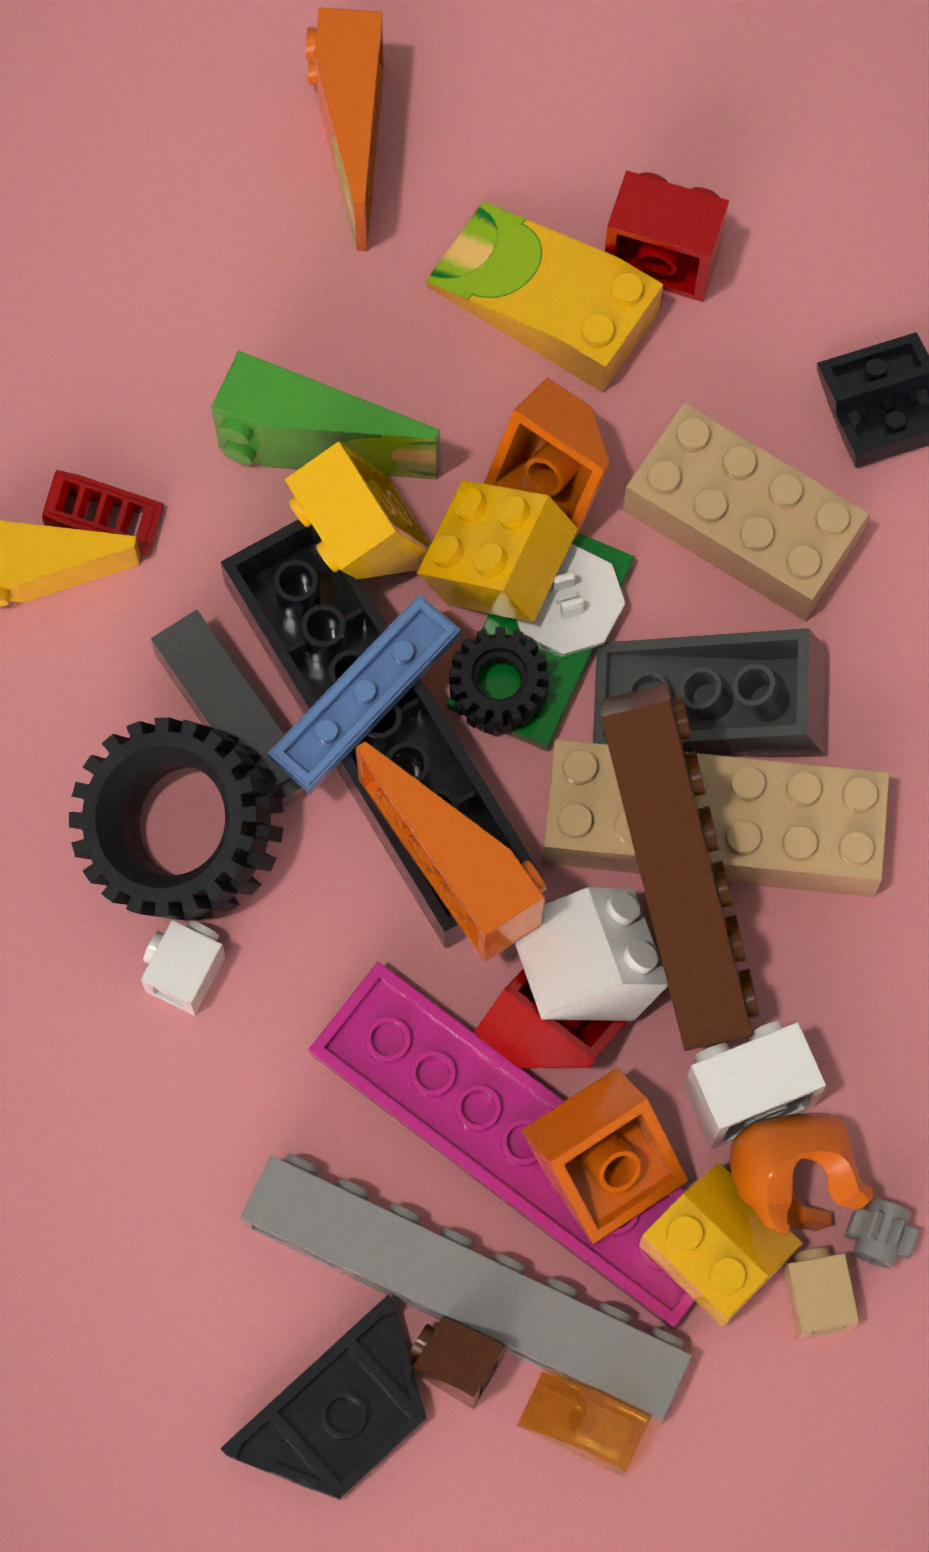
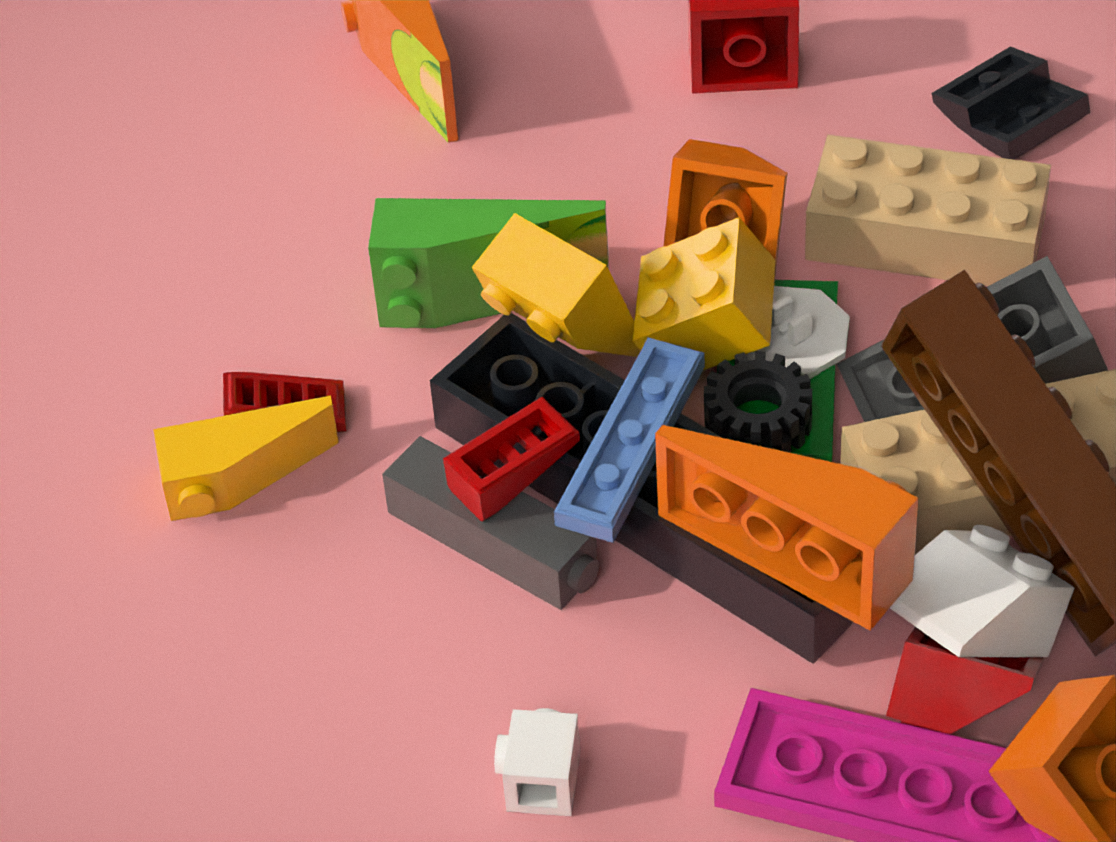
camera: 15 degrees left, 25 degrees down
(114, 809) = (437, 558): black tyre -> none
(251, 655) = (503, 484): none -> red slope
(549, 292) = (649, 107): yellow slope -> none

